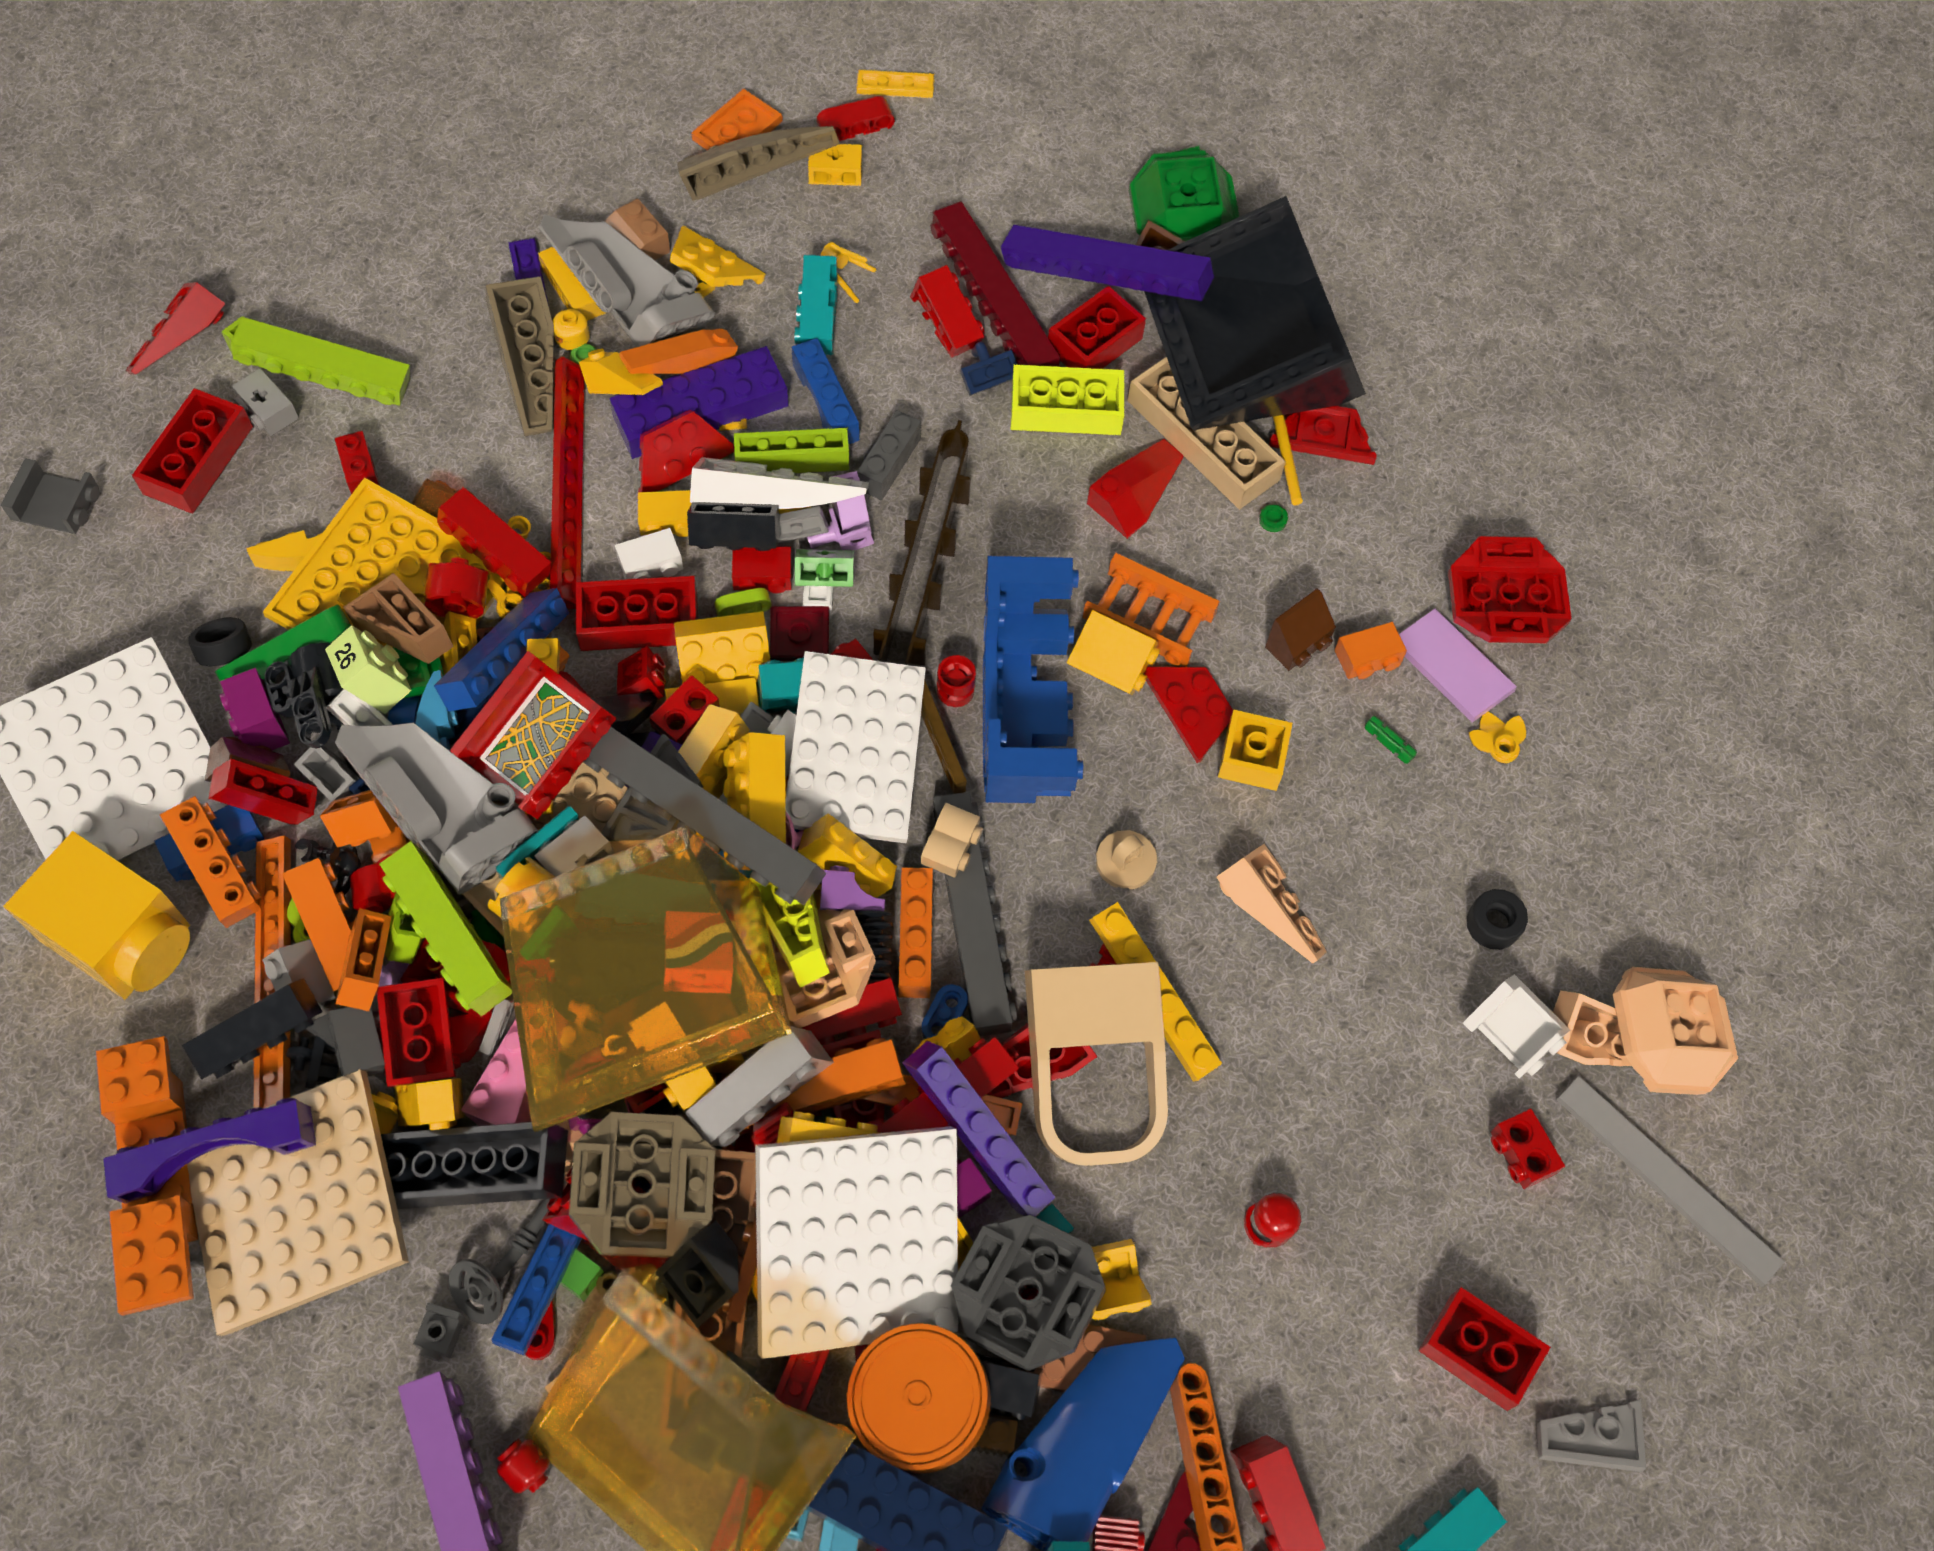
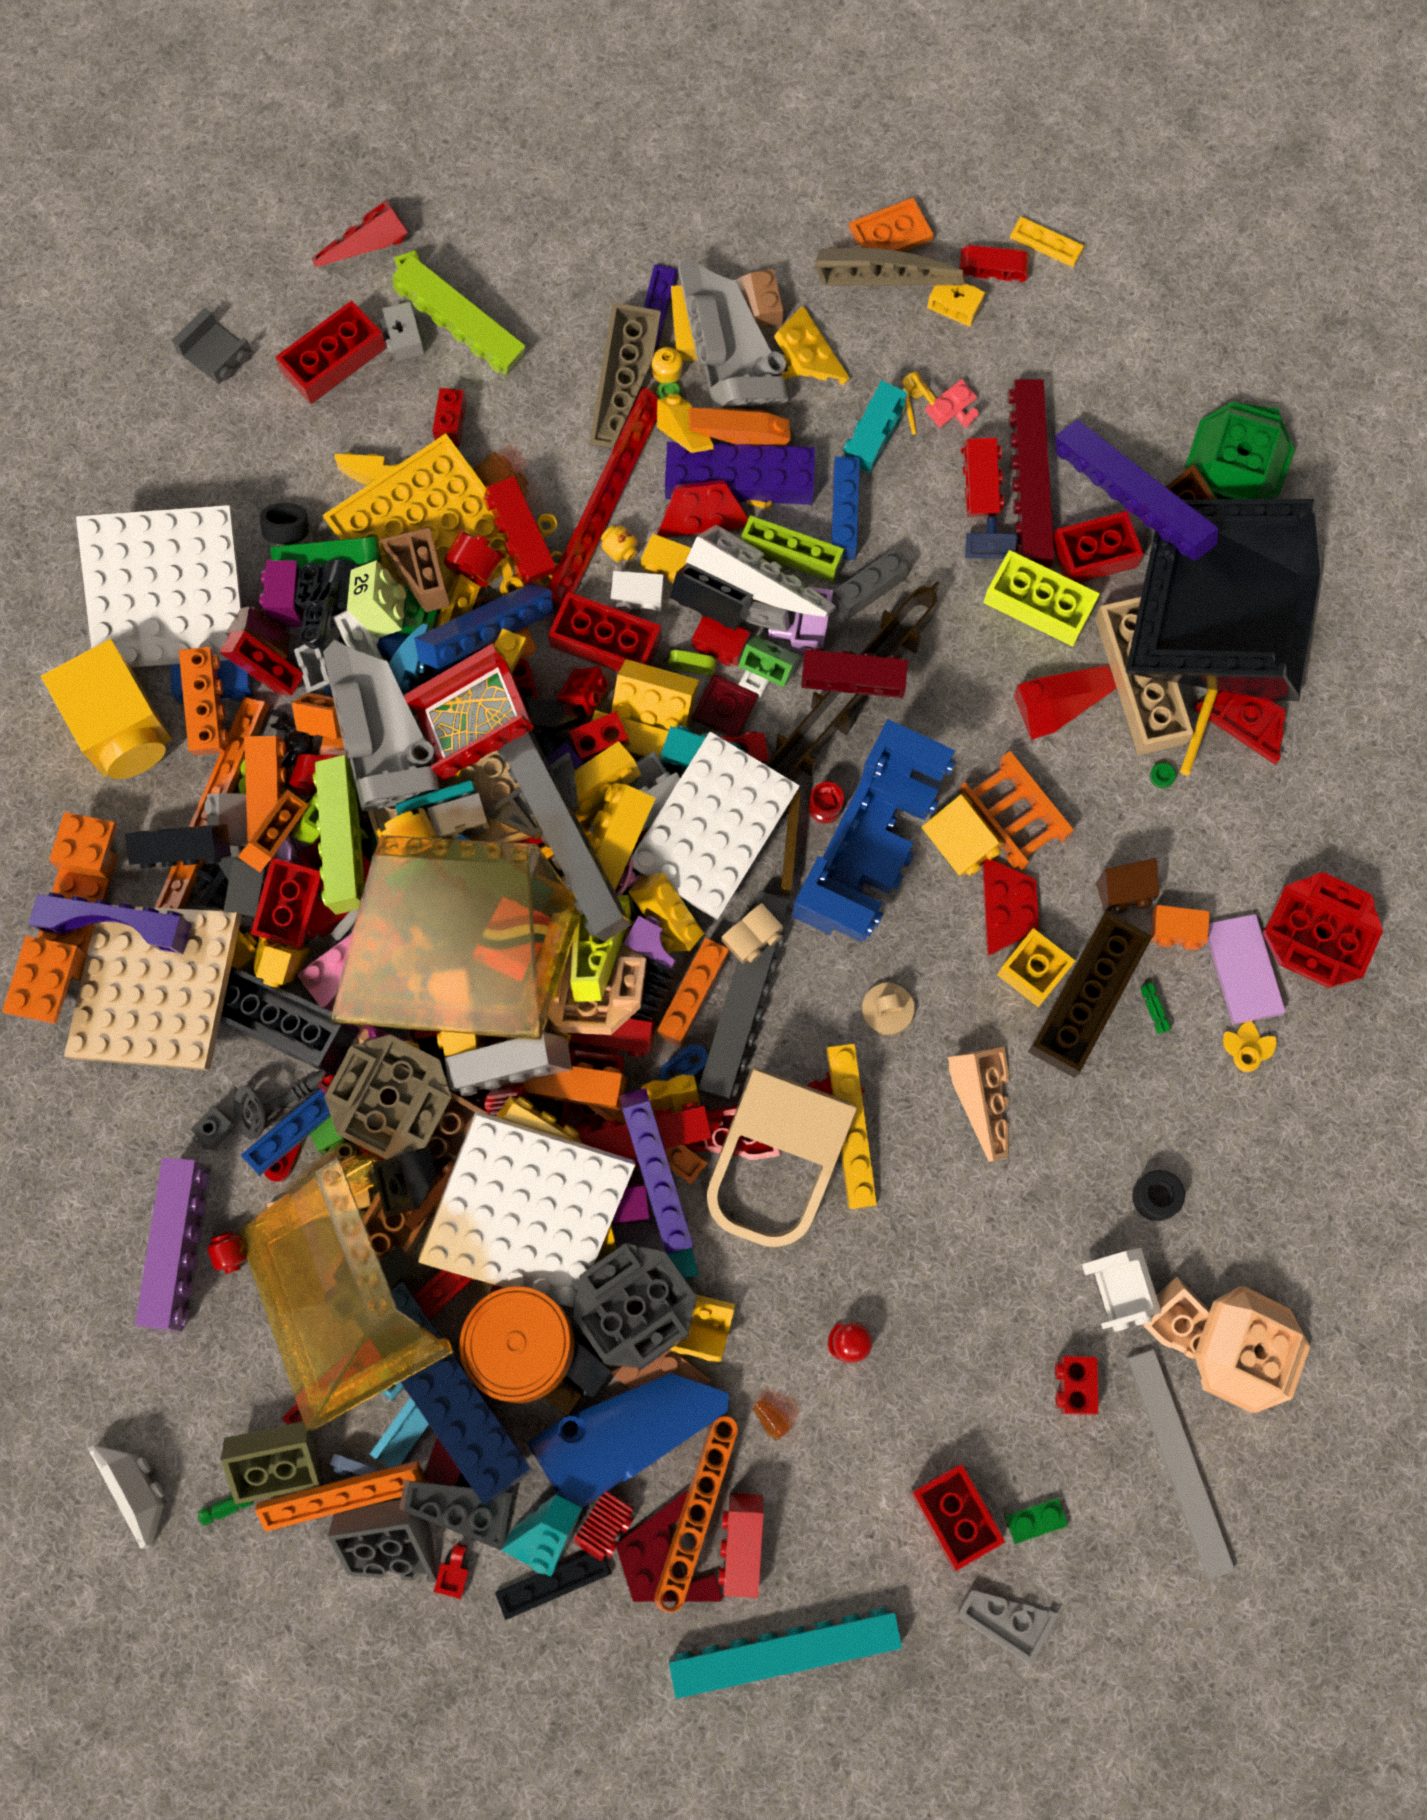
camera: 30 degrees right, 10 degrees up
(606, 518) = (619, 543): none -> yellow head
(882, 259) = (952, 404): none -> coral plate
(923, 537) = (854, 673): none -> dark red brick
(1234, 1345) = (771, 1419): none -> clear orange cone
(1322, 753) = (1090, 994): none -> dark brown brick
(1562, 1313) = (1036, 1521): none -> green plate

